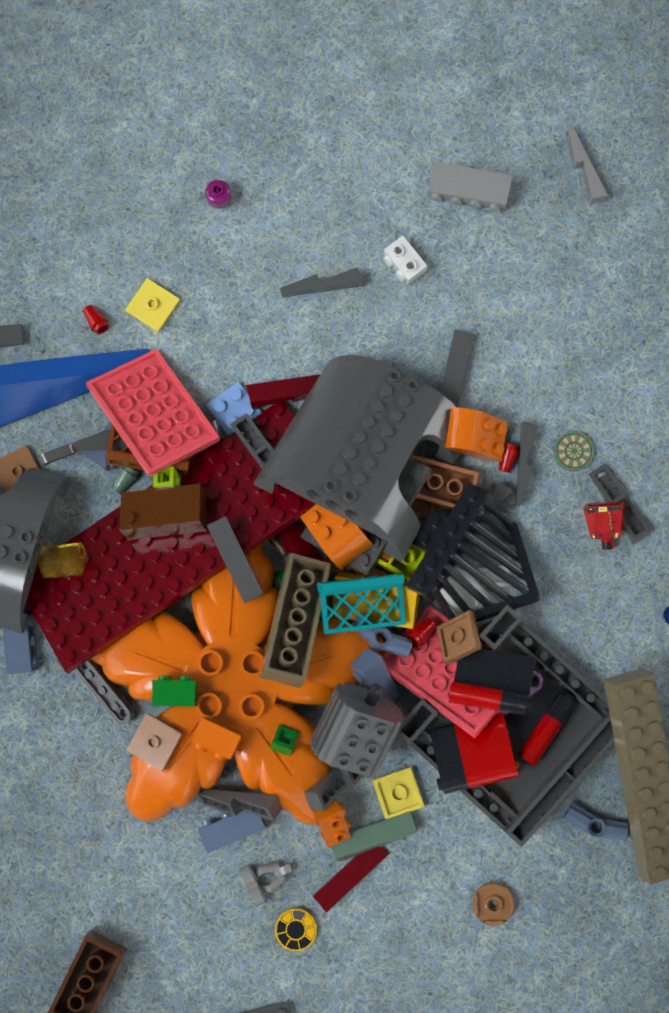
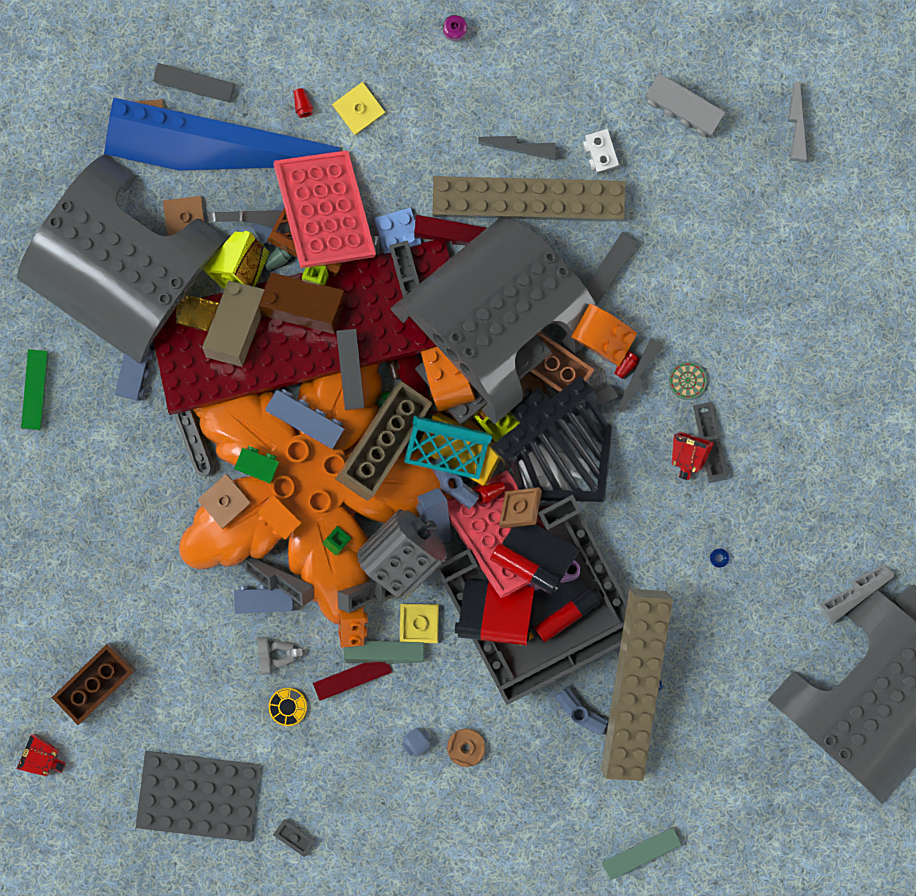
camera: 15 degrees right, 5 degrees up
(85, 496) = (238, 260): none -> neon yellow slope
(101, 558) = (234, 324): none -> dark tan brick
(207, 627) = (304, 419): none -> sand blue brick
(351, 330) = (528, 198): none -> dark tan brick
(440, 917) = (416, 742): none -> sand blue head

